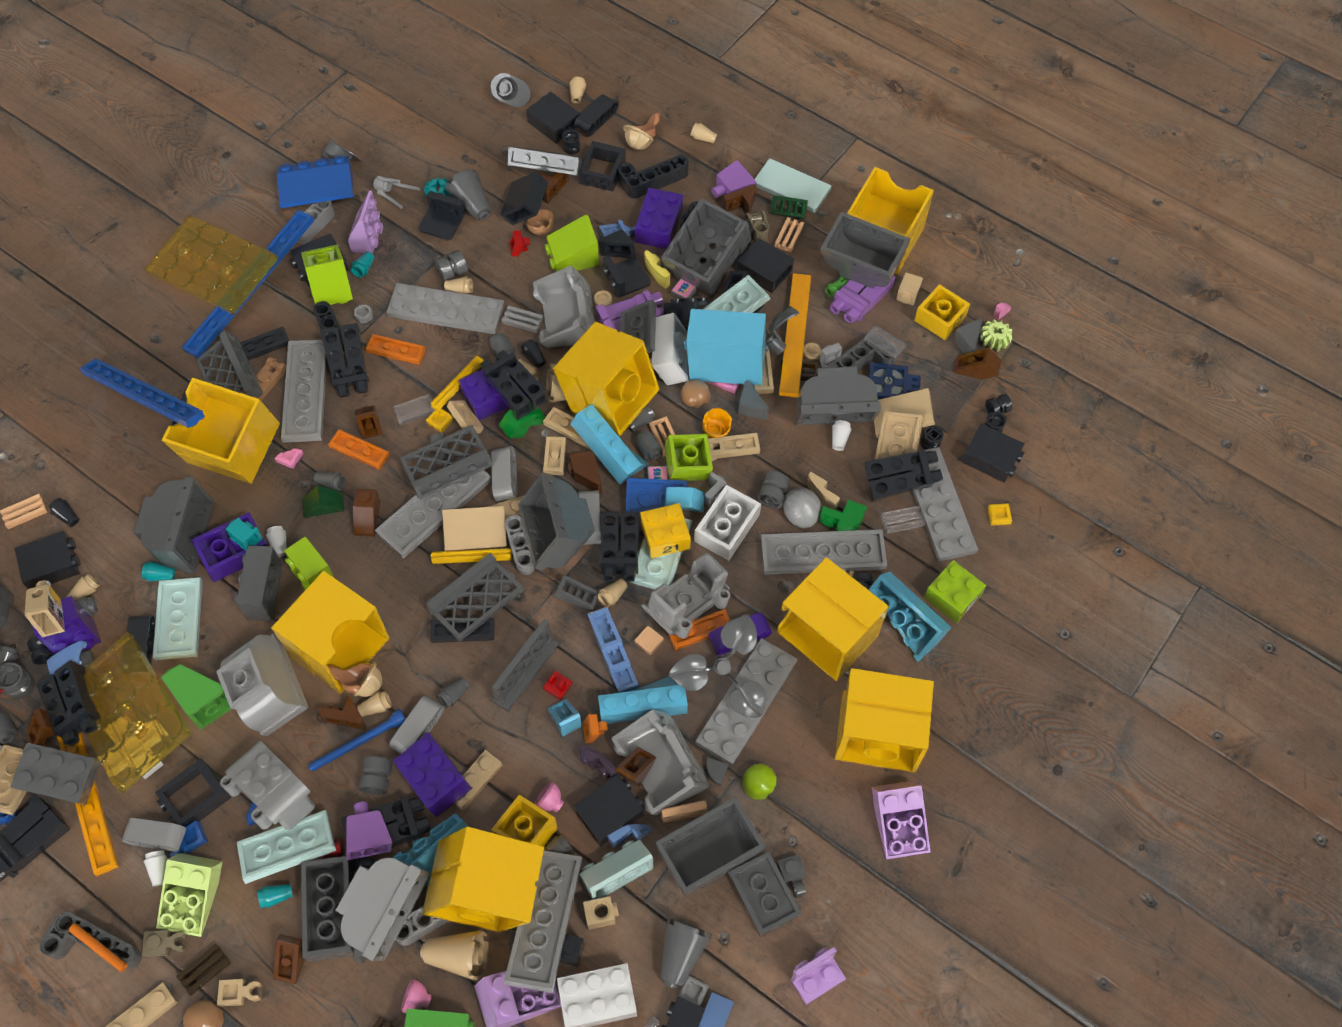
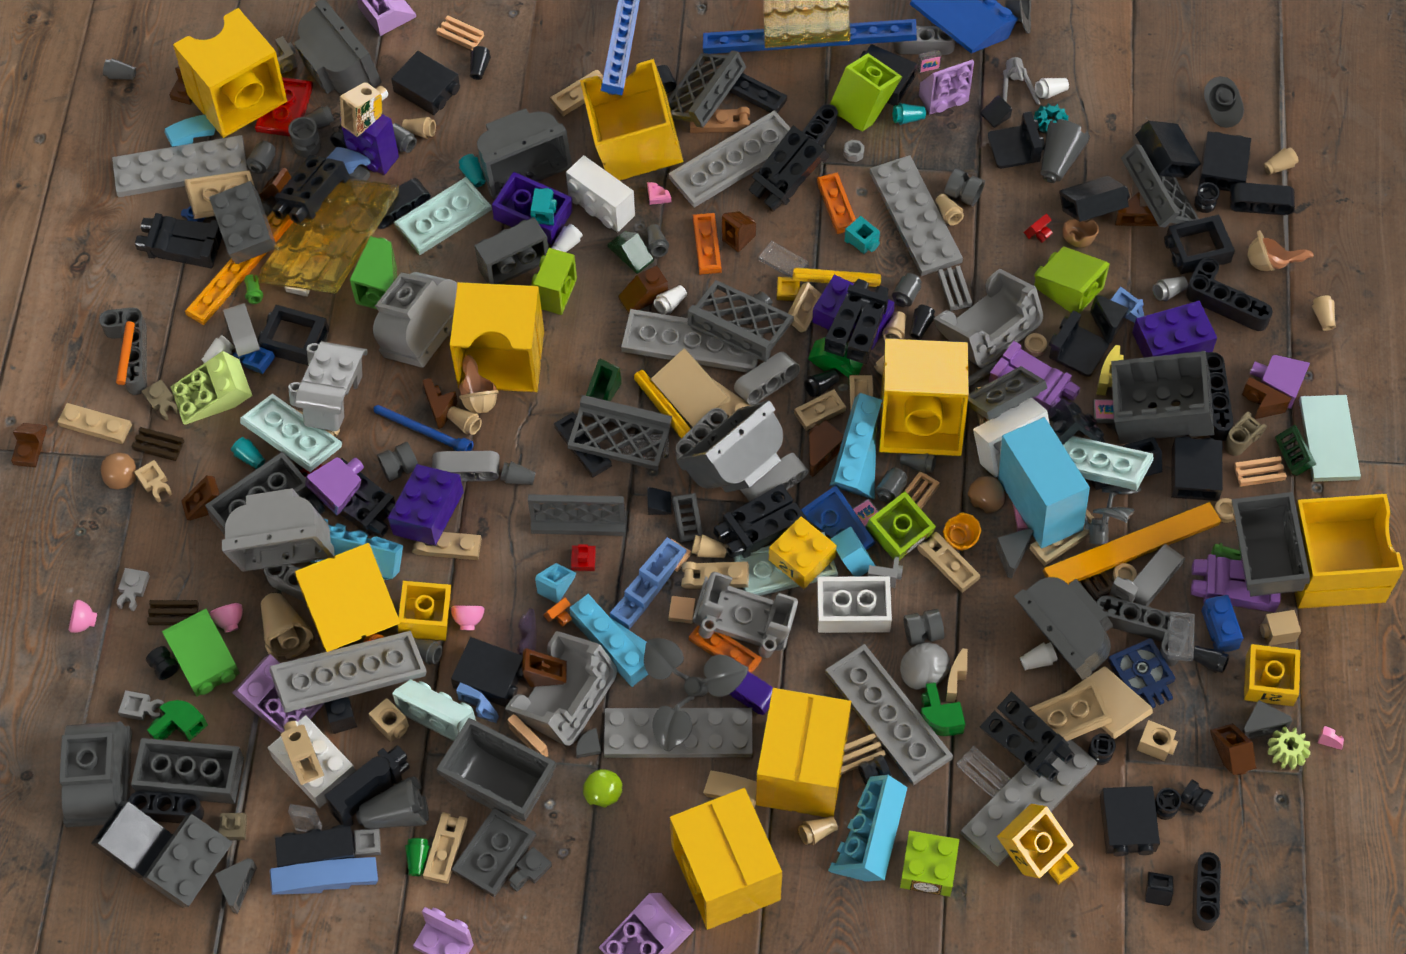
camera: 60 degrees right, 0 degrees up
(125, 806) = (253, 294): none -> bright green pin
(155, 460) = (571, 96): none -> tan plate
(261, 491) = (600, 194): none -> white brick
(333, 226) = (929, 61): none -> tile
(387, 500) = (670, 299): none -> white cone
(406, 214) = (996, 111): none -> black slope
(414, 174) = (1050, 87): none -> white cone
(422, 584) = (604, 381): none -> dark green slope
(438, 347) = (862, 235): none -> teal brick
(520, 136) = (1168, 149): none -> black brick
(533, 444) = (821, 382): none -> black cone
(549, 605) = (658, 501): none -> black slope
(605, 998) = (298, 748): none -> tan torso
(621, 203) = (1168, 288): none -> light grey cone
(638, 596) = (737, 570): none -> tan plate
(646, 939) = (365, 783): none -> black hips
(731, 957) = (416, 854): none -> green cone
(738, 930) = (444, 848): none -> tan plate
(803, 267) = (1224, 510): none -> tan tile
(817, 688) = (724, 783): none -> tan slope
(824, 329) = (1157, 574): none -> light grey beam
(884, 650) = (816, 830): none -> tan cone
(887, 317) = (1222, 623): none -> blue brick
(909, 336) = (1212, 659): none -> black cone
(942, 409) = (1161, 732): none -> tan brick
(980, 514) = (1035, 840): none -> yellow brick
(1049, 466) = (1159, 889): none -> black slope
(1059, 438) = (1204, 902): none -> black beam

